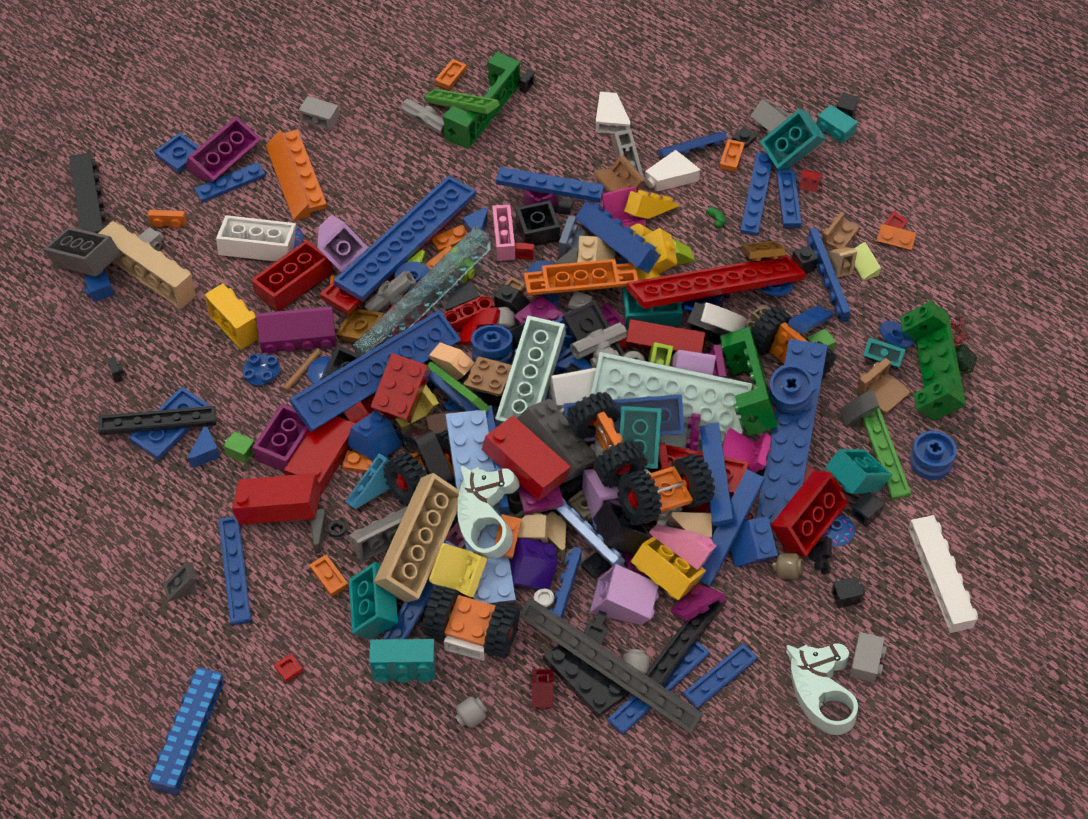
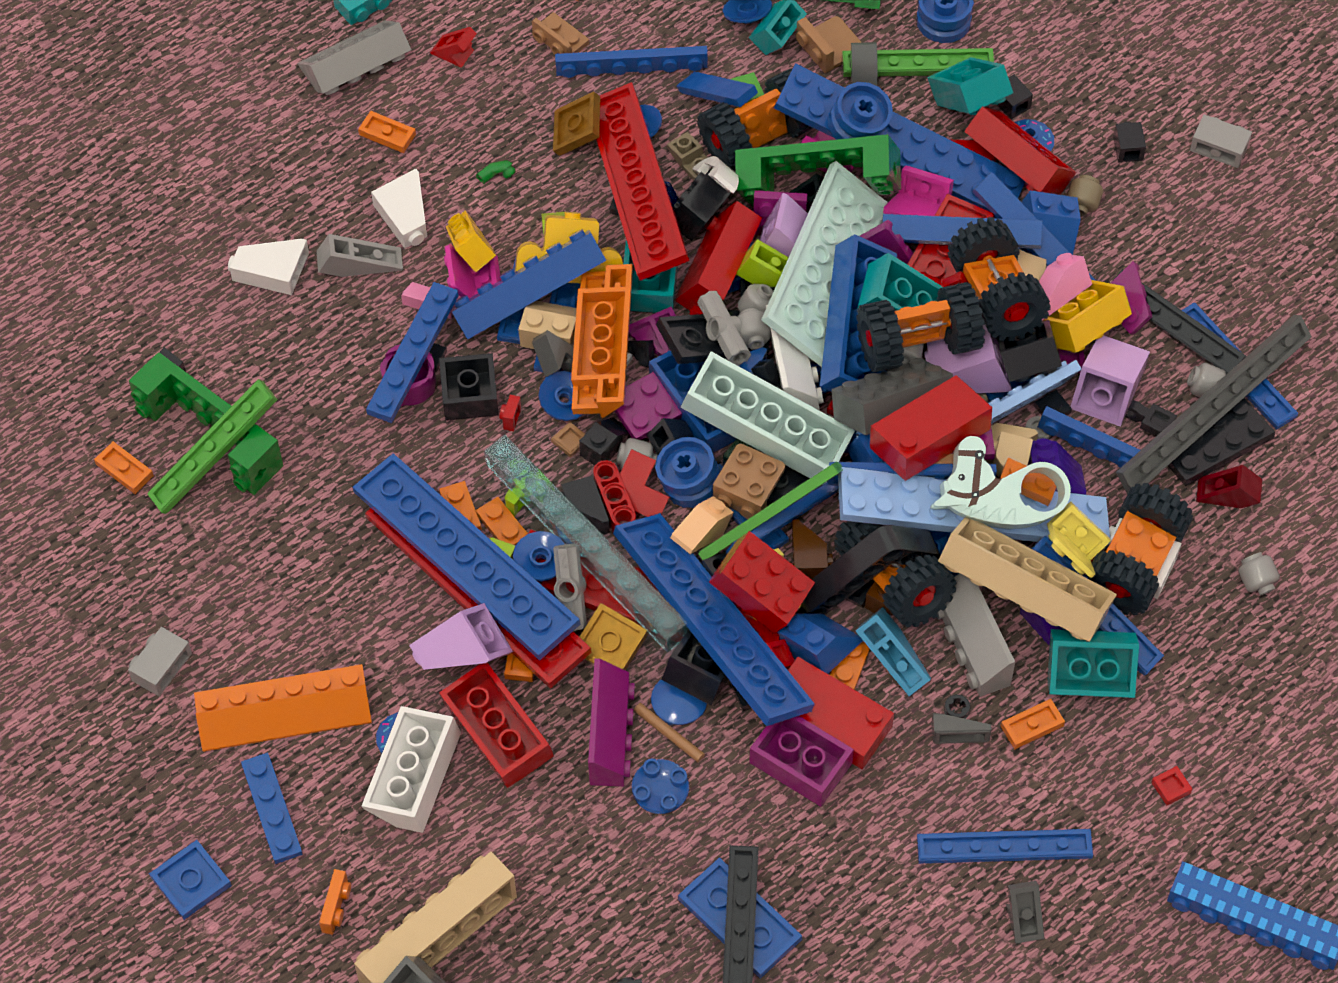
camera: 80 degrees left, 5 degrees up
(153, 237) = (374, 925): light grey brick -> none
(203, 449) = (795, 869): blue slope -> none
(222, 150) = (213, 807): magenta slope -> none
(232, 316) = (566, 809): yellow brick -> none
(239, 447) = (802, 822): bright green brick -> none
(276, 499) = (912, 770): red brick -> none
(402, 660) = (1186, 638): teal brick -> none
(424, 116) = (206, 512): light grey piece -> none
(476, 219) = (450, 468): blue slope -> none
(503, 232) = (471, 430): bright pink brick -> none
(544, 597) = (1095, 473): white tile -> none
(570, 236) = (504, 352): sand blue bracket -> none
(619, 176) = (406, 269): medium nougat bracket -> none
(698, 143) = (354, 175): blue plate -> none
(720, 676) = (1227, 298): blue tile -> none
(745, 136) = (353, 112): black plate -> none
(756, 194) = (462, 116): blue plate -> none
(788, 198) = (483, 80): blue plate -> none
(792, 140) = (401, 43): teal brick -> none
(805, 259) = (602, 78): black brick -> none
(812, 684) = (1253, 201): light aqua animal -> none
(820, 553) = (1069, 155): black plate -> none
(843, 261) = (613, 33): tan slope -> none
(866, 263) = (613, 18): yellowish green slope -> none
(942, 574) = (1113, 42): white brick -> none

